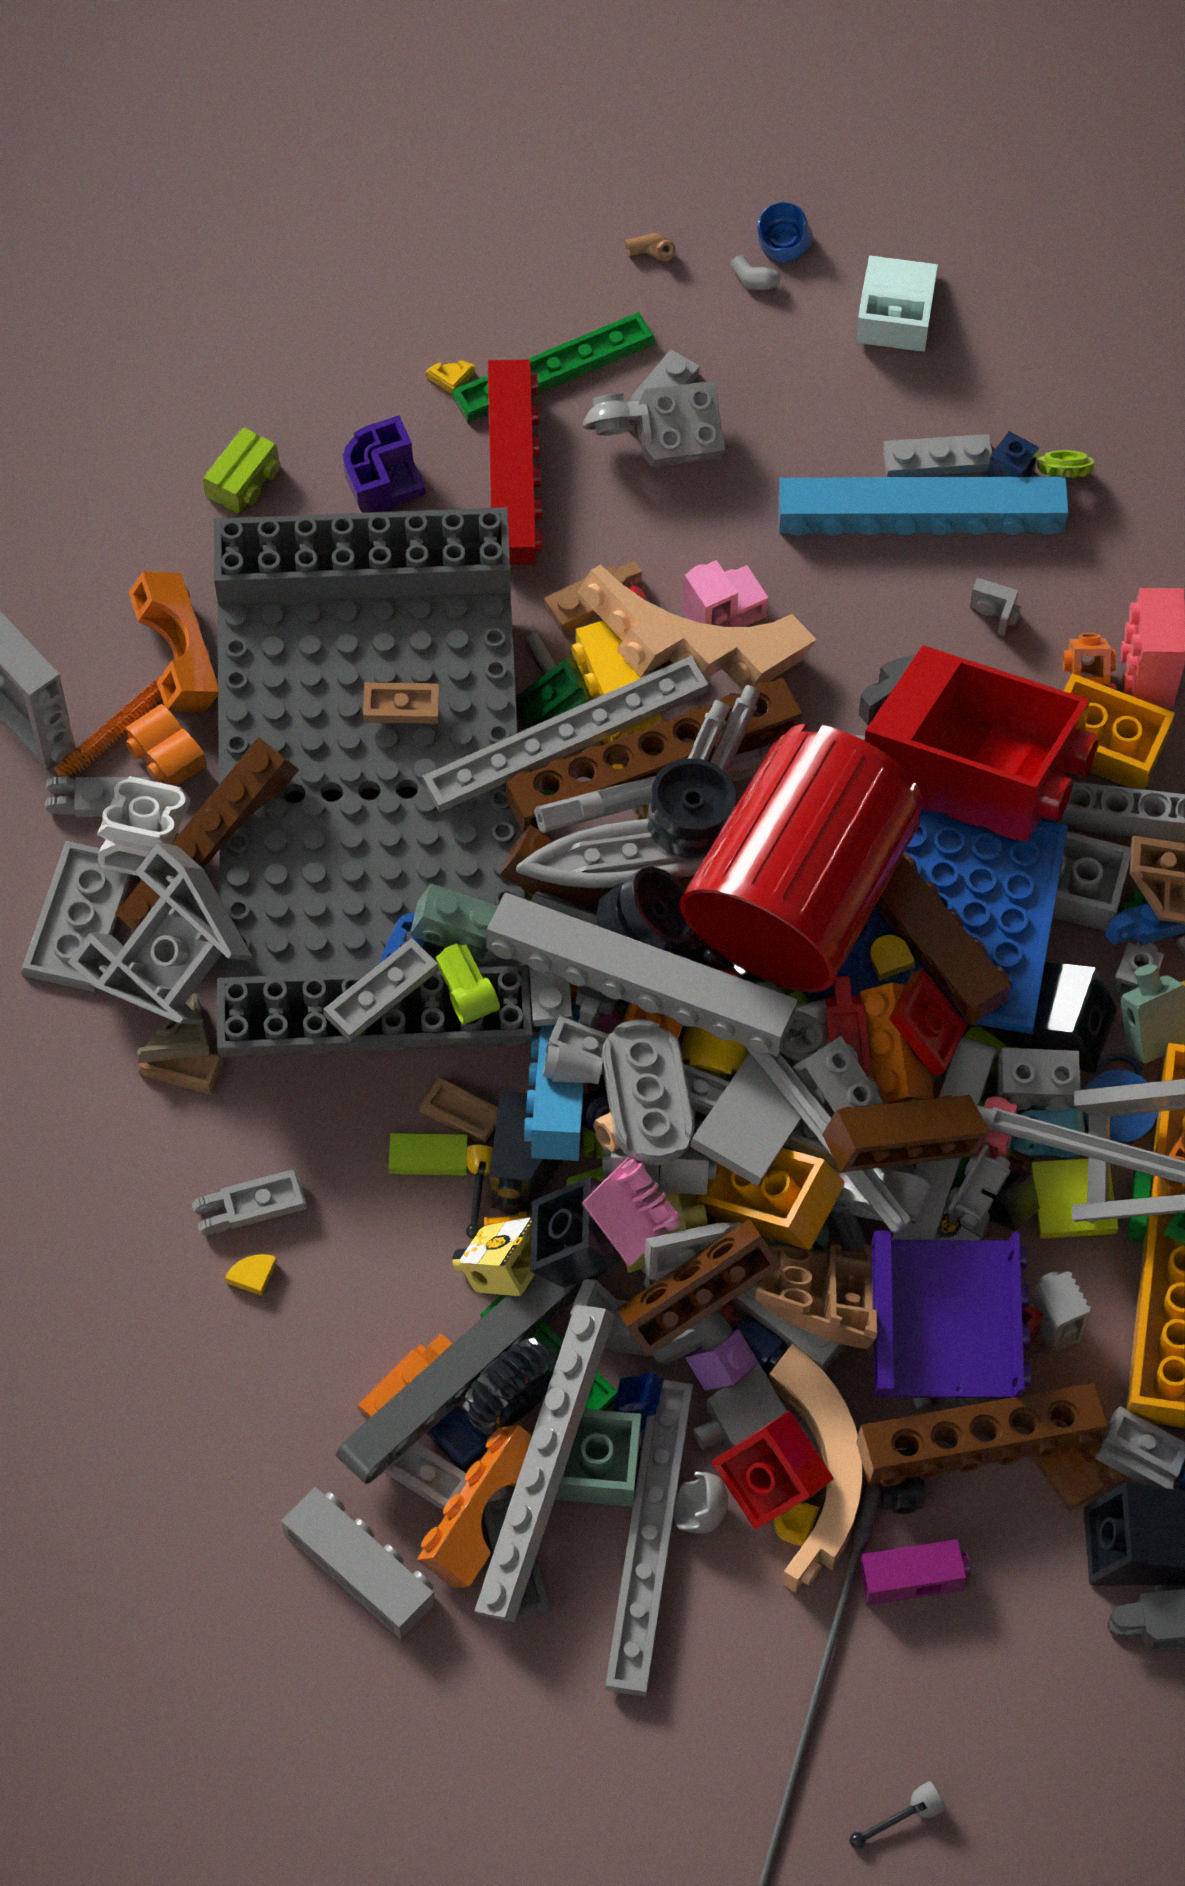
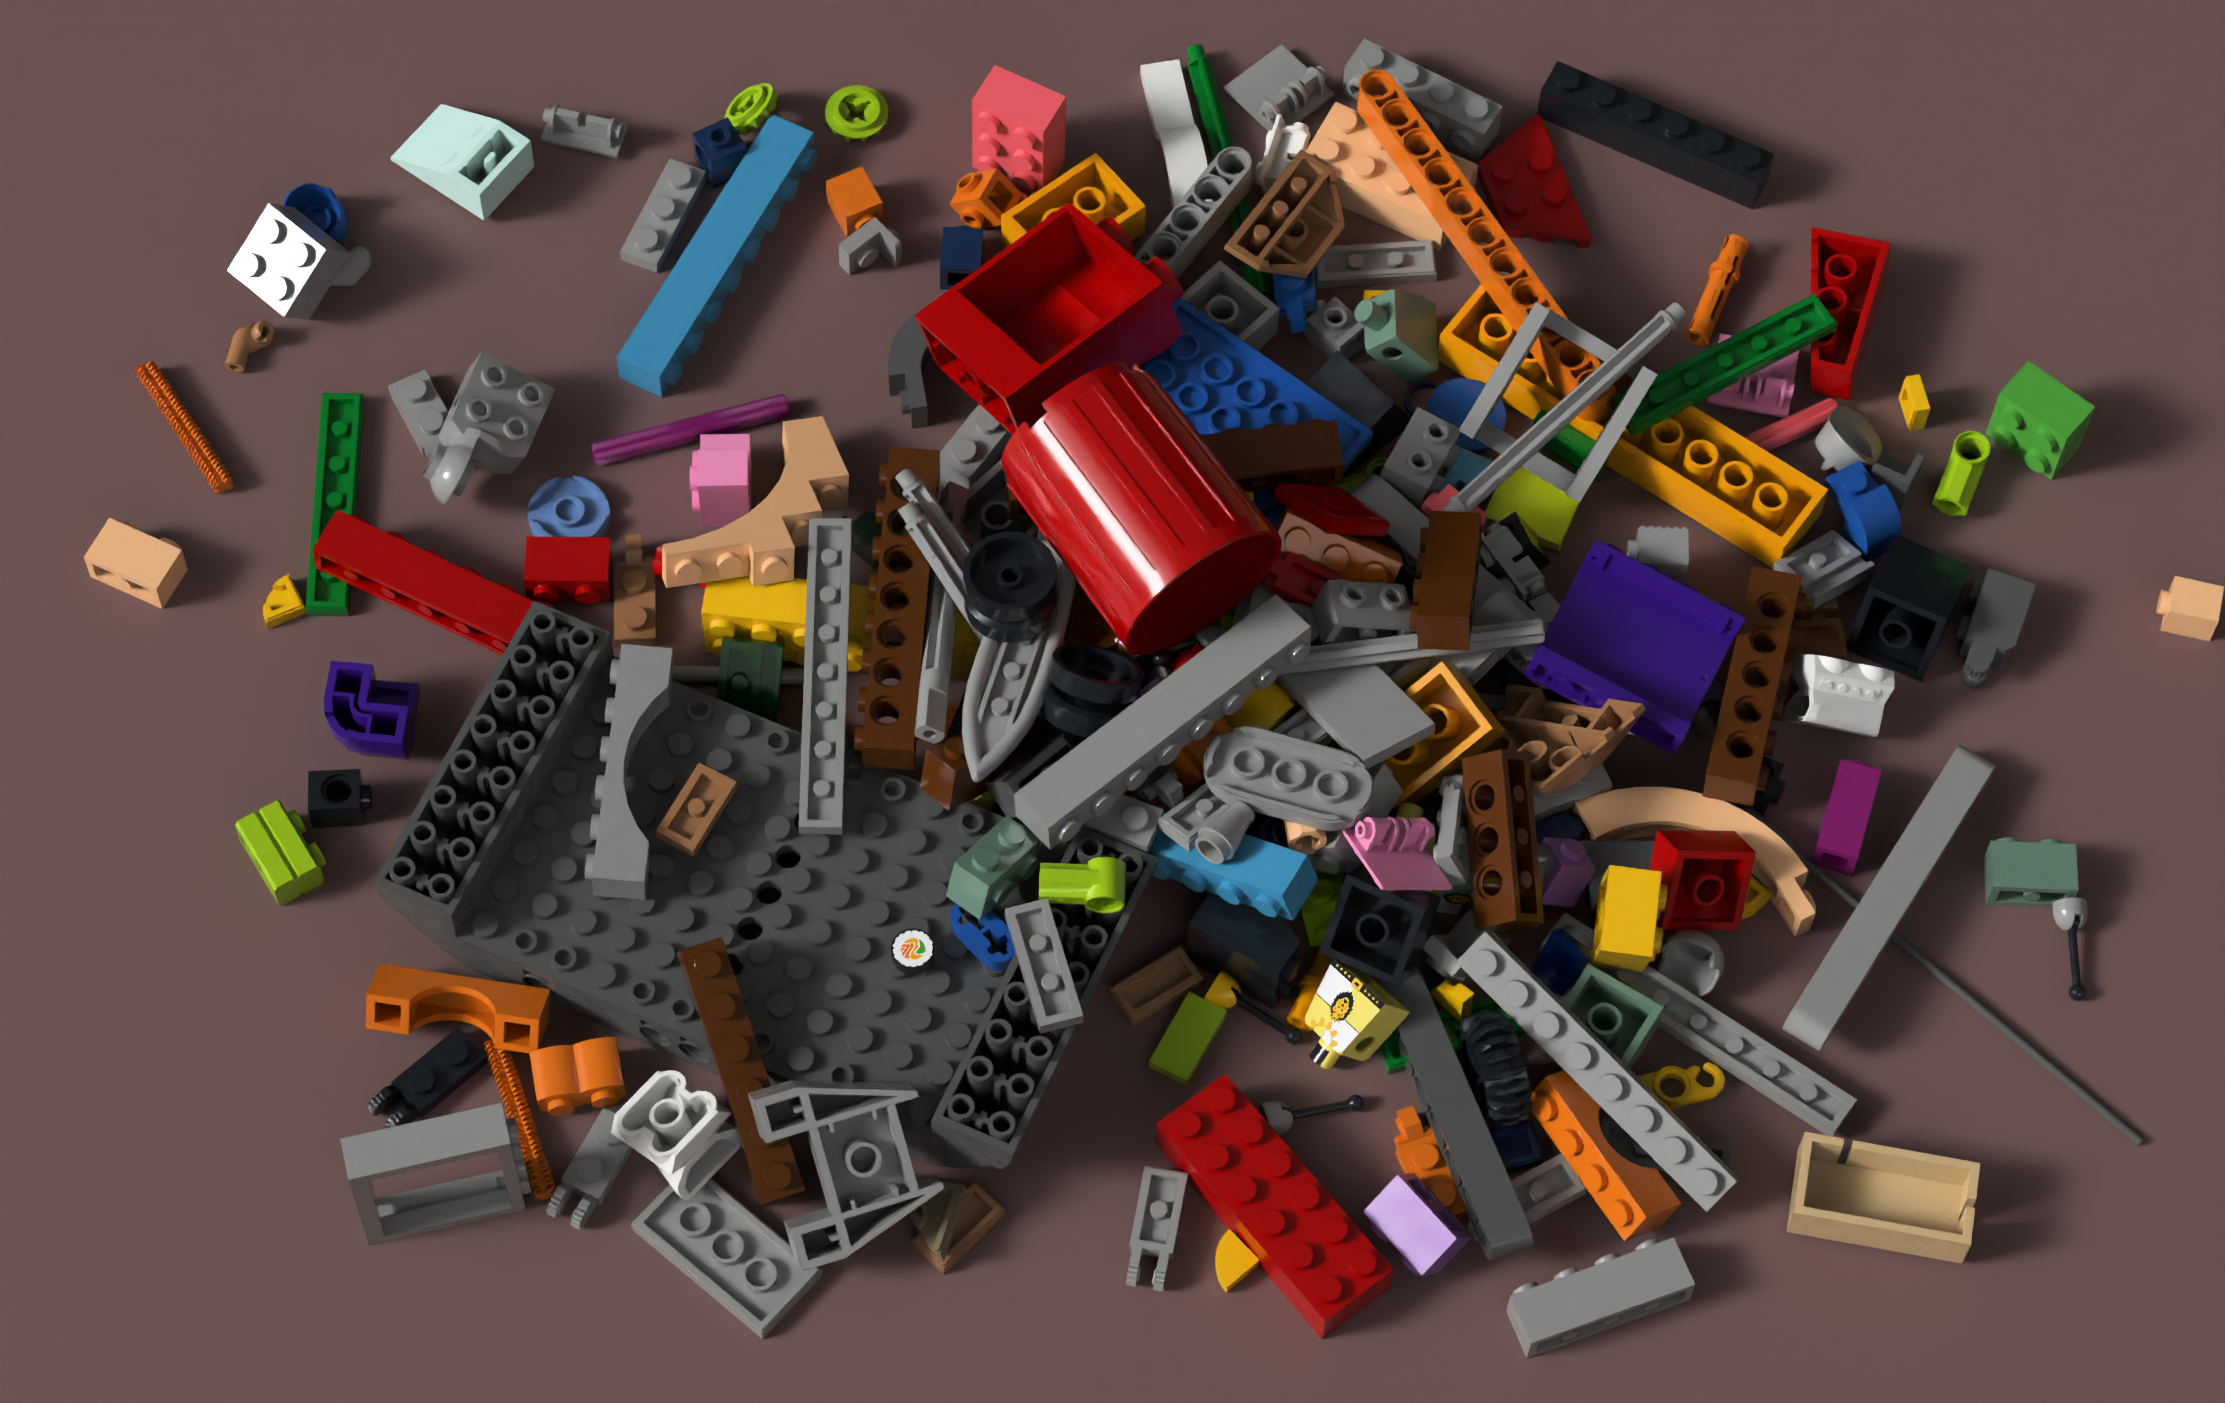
camera: 65 degrees left, 0 degrees up
(113, 655) = (430, 1079): none -> black hinge
(305, 472) = (330, 783): none -> black brick
(308, 1278) = (1274, 1206): none -> red brick
(346, 1390) = (1416, 1225): none -> brick
(364, 906) = (913, 951): none -> tile
(392, 1250) = (1281, 1116): none -> hinge
(424, 267) = (136, 562): none -> light nougat brick
(474, 617) = (641, 694): none -> light grey arch
(557, 242) = (185, 427): none -> orange axle
(559, 1332) = (1455, 999): none -> yellow tile
(561, 1748) = (1884, 1198): none -> tan piece
(579, 536) = (568, 569): none -> red brick
(588, 1558) = (1687, 1077): none -> yellow piece
(636, 519) = (569, 509): none -> medium blue tile
(691, 1422) = (1627, 918): none -> yellow brick
(726, 230) = (288, 261): none -> brick
(759, 564) = (690, 428): none -> magenta axle
(853, 1637) = (1888, 898): none -> light grey beam
(946, 1748) = (2029, 872): none -> sand green brick
(975, 366) = (583, 131): none -> light grey hinge
(1021, 1511) = (1838, 694): none -> white piece
(1031, 574) = (853, 200): none -> orange brick
(1032, 664) = (960, 254): none -> dark blue brick
(1106, 529) = (858, 99): none -> lime gear

